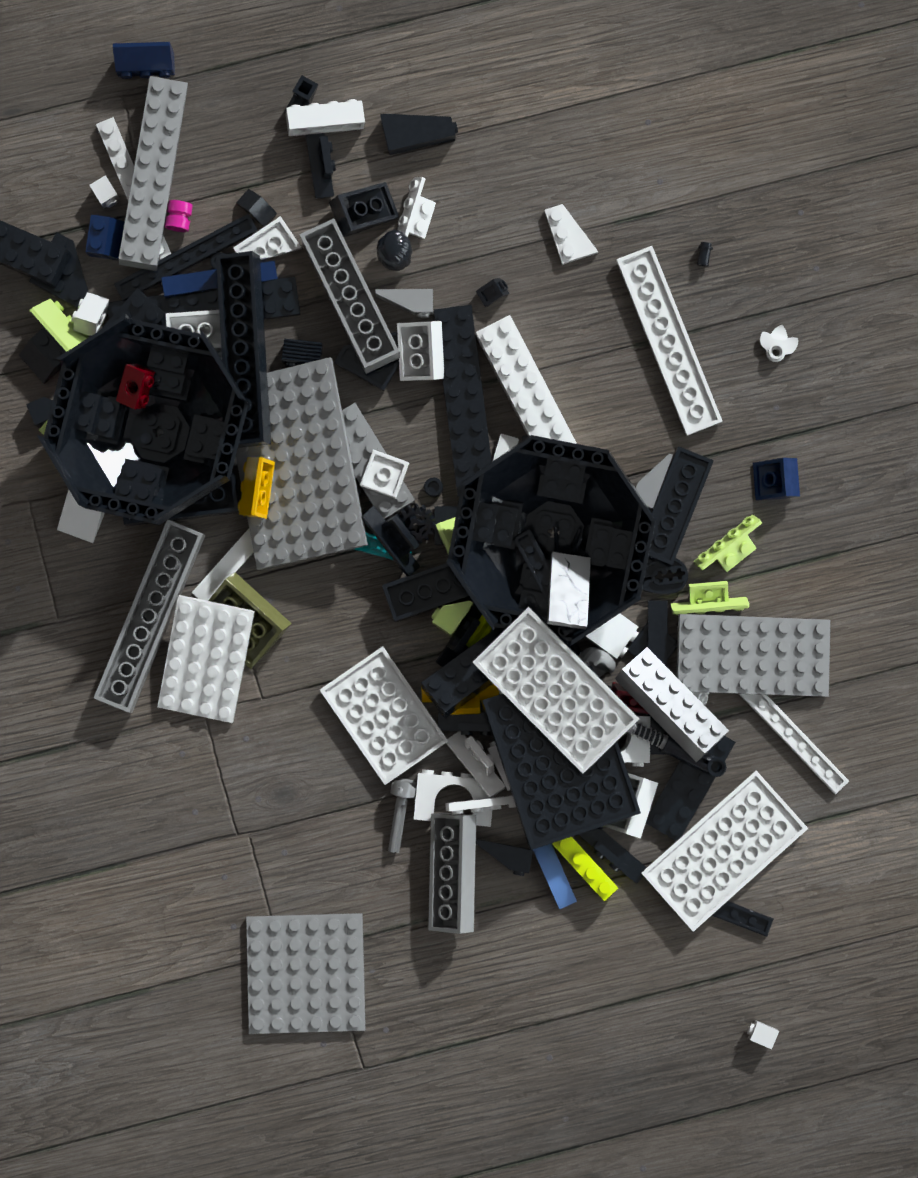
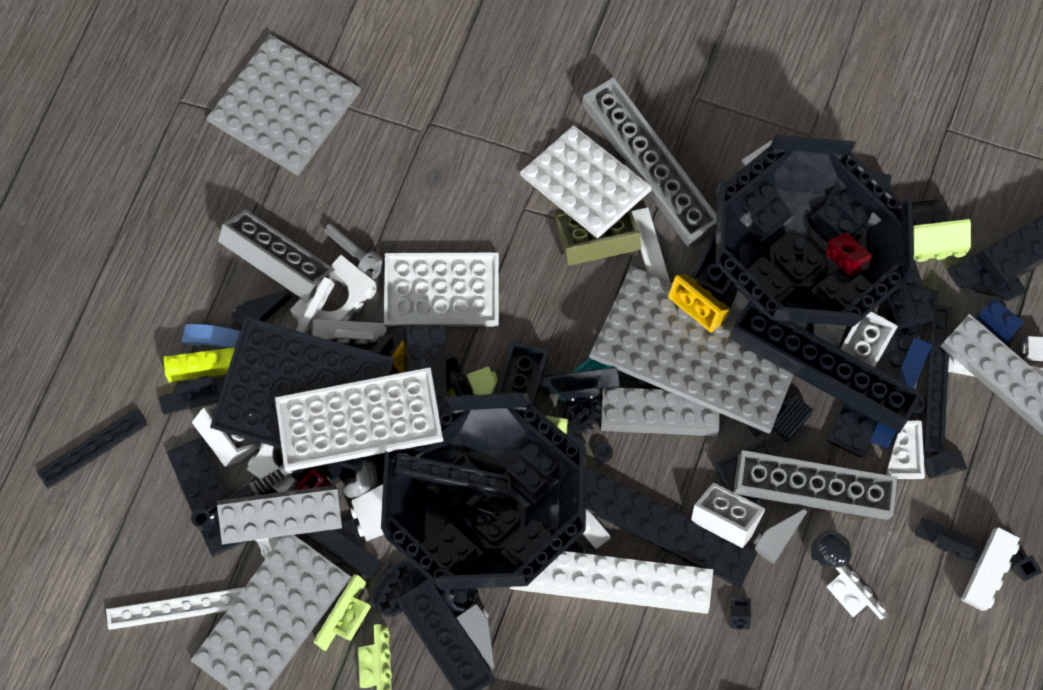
camera: 125 degrees right, 15 degrees down
(90, 314) = (936, 269): white brick -> none
(178, 216) = (978, 394): dark pink wheel -> none
(363, 209) = (886, 551): black slope -> none
(384, 474) = (640, 411): white tile -> none
(416, 131) = (929, 639): black slope -> none
(568, 590) = (433, 483): tile -> none
(724, 850) = (130, 484): white plate -> none

